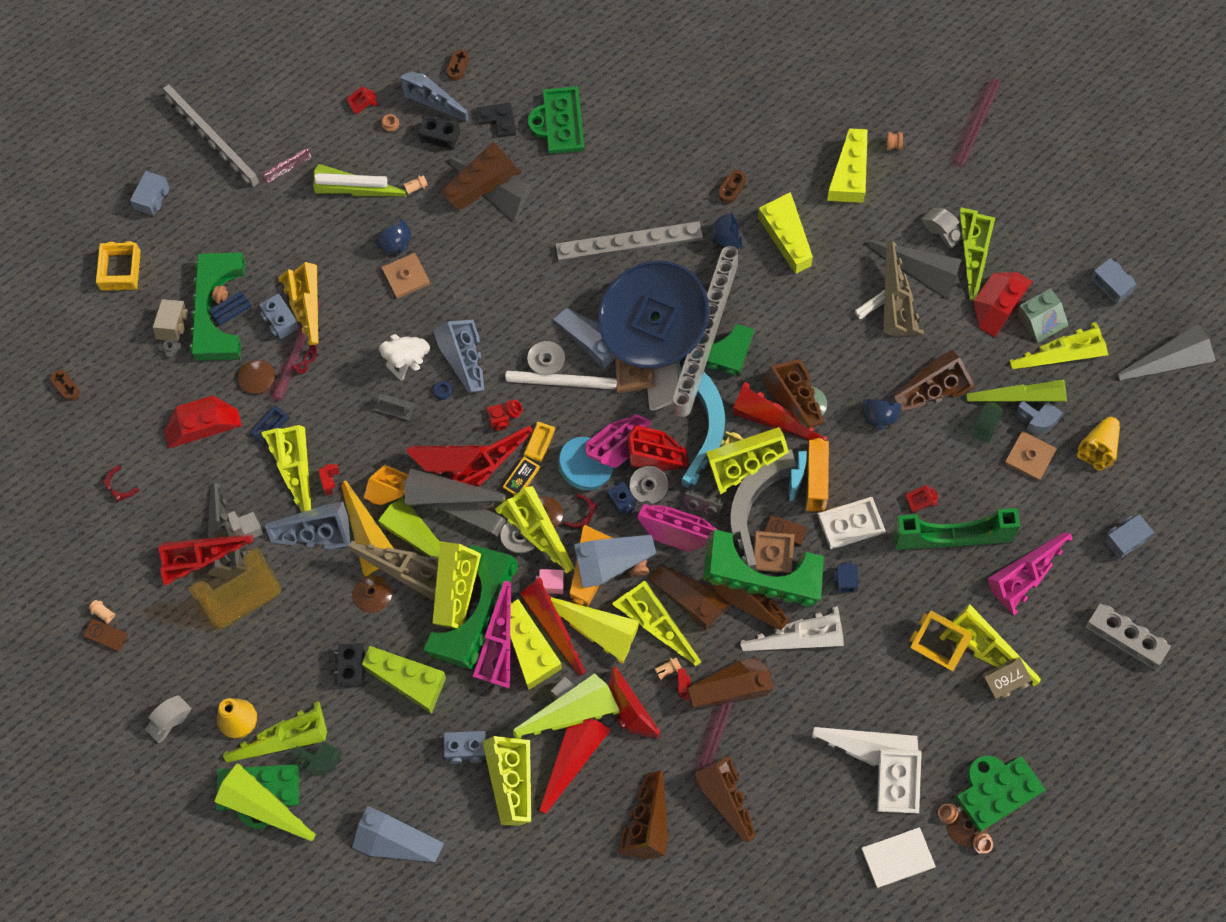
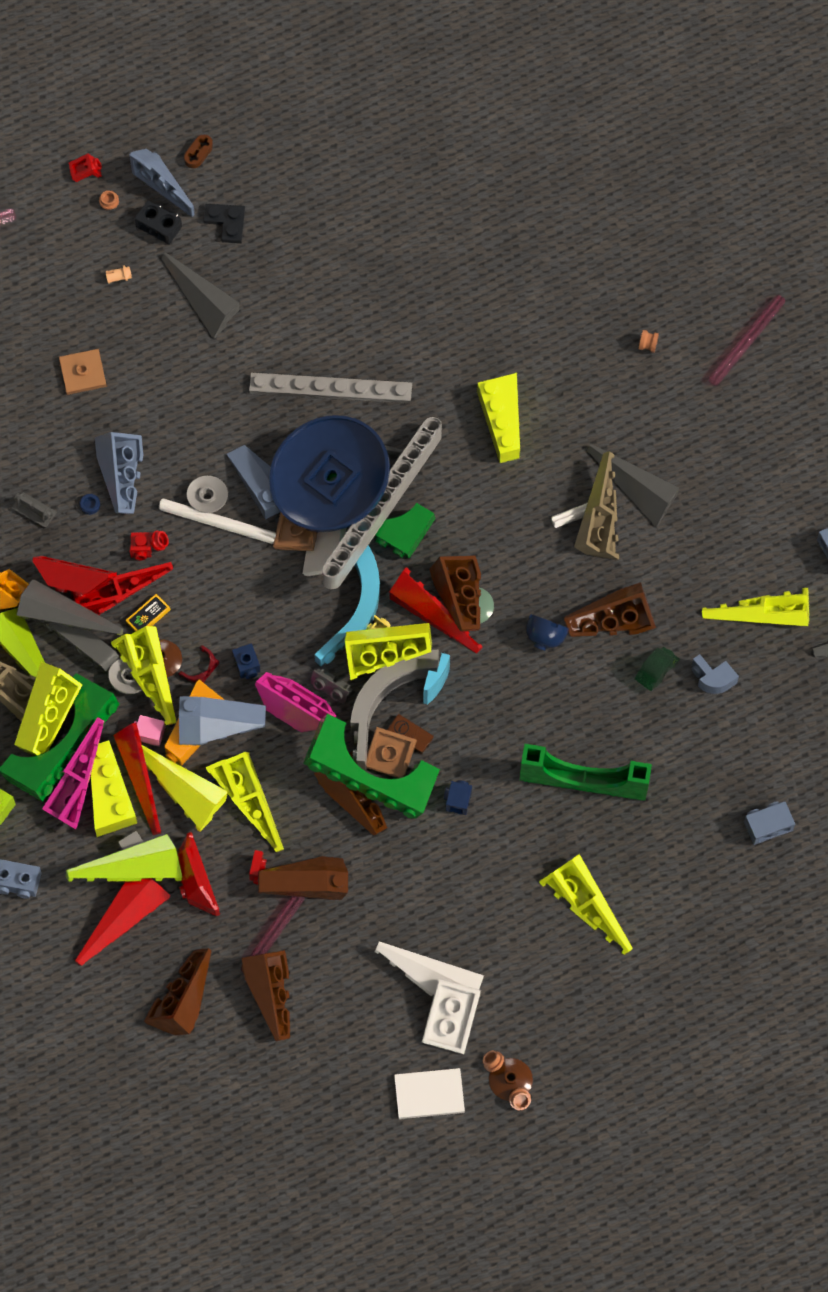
camera: 10 degrees right, 0 degrees up
(350, 180) = (49, 255): white axle -> none
(355, 190) = (35, 252): lime wedge -> none
(394, 238) = (80, 329): dark blue cylinder -> none
(403, 353) = (57, 455): white piece -> none
(480, 176) = (189, 281): reddish brown wedge -> none
(510, 778) = (53, 919): neon yellow wedge -> none
(539, 441) = (177, 581): yellow tile -> none
(559, 120) = (292, 237): green plate -> none
(579, 469) = (218, 615): dark azure piece -> none
(611, 443) = (258, 600): dark pink wedge -> none
(639, 570) = (244, 739): nougat wheel -> none
(648, 493) = (271, 659): light grey dish -> none
(655, 449) = (293, 618): red wedge -> none
(669, 667) = (247, 847): light nougat pin -> none
(690, 595) = (291, 778): reddish brown wedge -> none
(726, 232) = (437, 399): dark blue cylinder -> none
(731, 187) = (457, 353): reddish brown plate -> none
(814, 632) = (396, 844): white wedge -> none
(817, 475) = (458, 683): light orange slope -> none
(850, 174) = (589, 365): neon yellow wedge -> none
(851, 523) = (481, 742): white tile -> none
(922, 498) = (563, 733): red bracket -> none
(945, 224) = (674, 445): light grey brick -> none
(950, 664) = (552, 899): yellow window -> none
(976, 240) = (705, 467): lime wedge -> none
(998, 790) = (551, 1050): green plate -> none
(999, 300) = (710, 540): red wedge -> none
(1007, 678) = (594, 938): dark tan brick -> none
(1016, 579) = (637, 840): dark pink wedge -> none
(1030, 456) = (693, 715): medium nougat plate -> none
(1043, 315) = (751, 568): sand green slope -> none
(1043, 392) = (727, 650): lime wedge -> none
(1101, 444) = (770, 718): yellow cone -> none
(1116, 636) = (756, 952): light grey brick -> none

